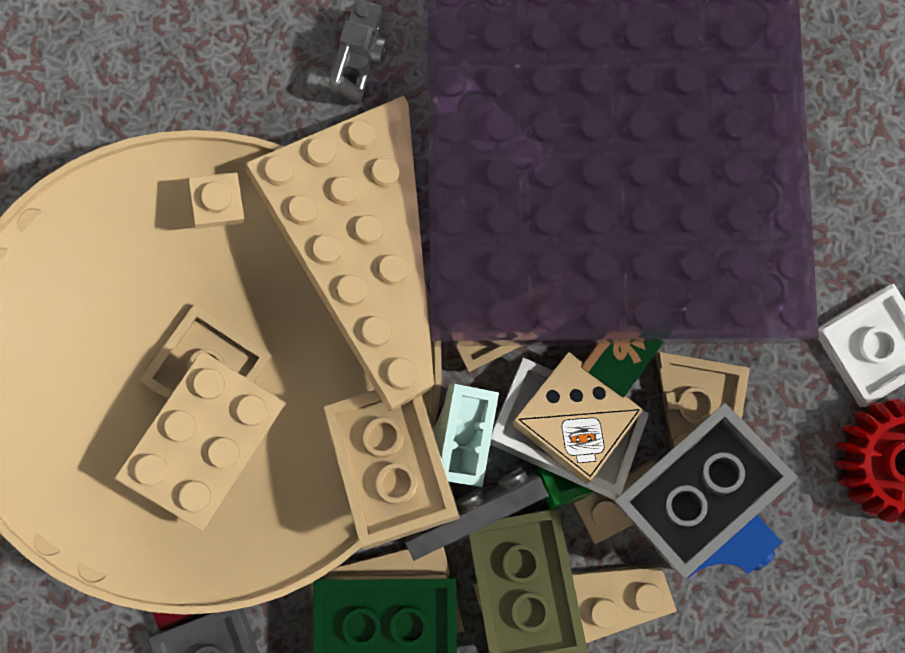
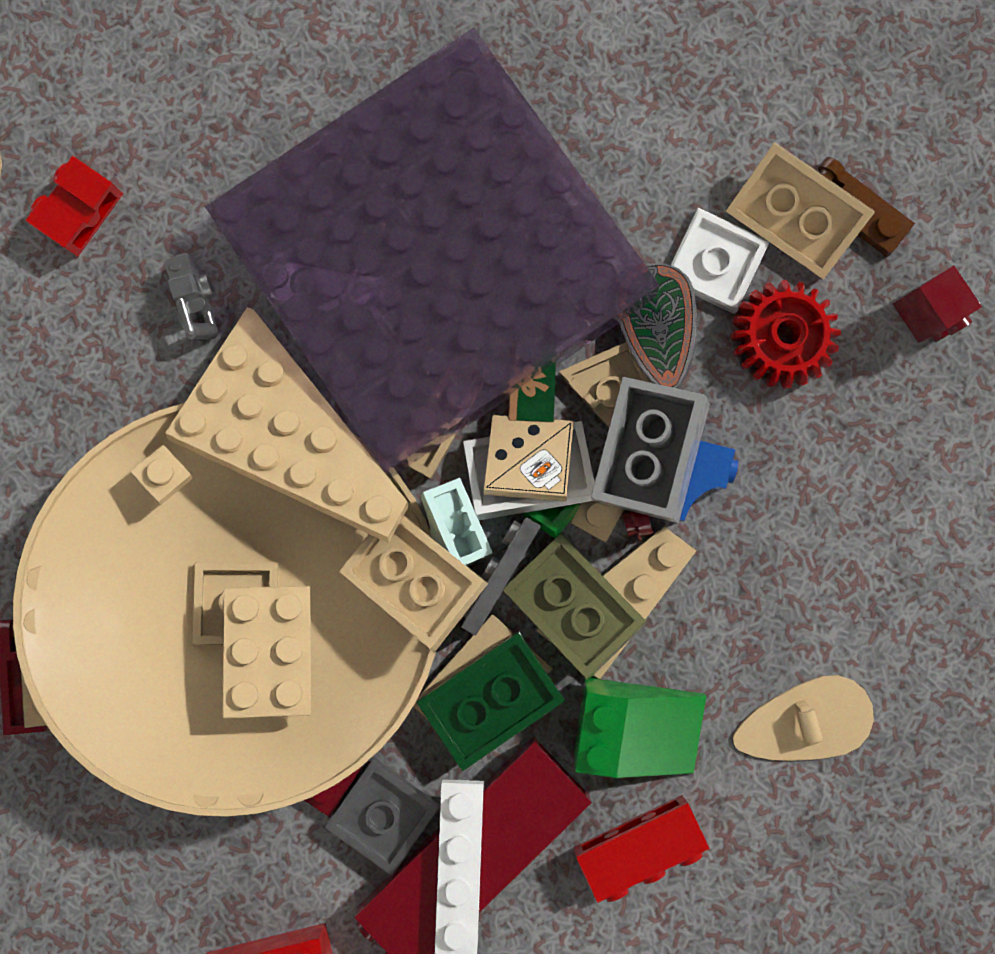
camera: 30 degrees left, 0 degrees up
(636, 548) = (637, 524): none -> dark red plate
(787, 381) = (665, 328): none -> shield

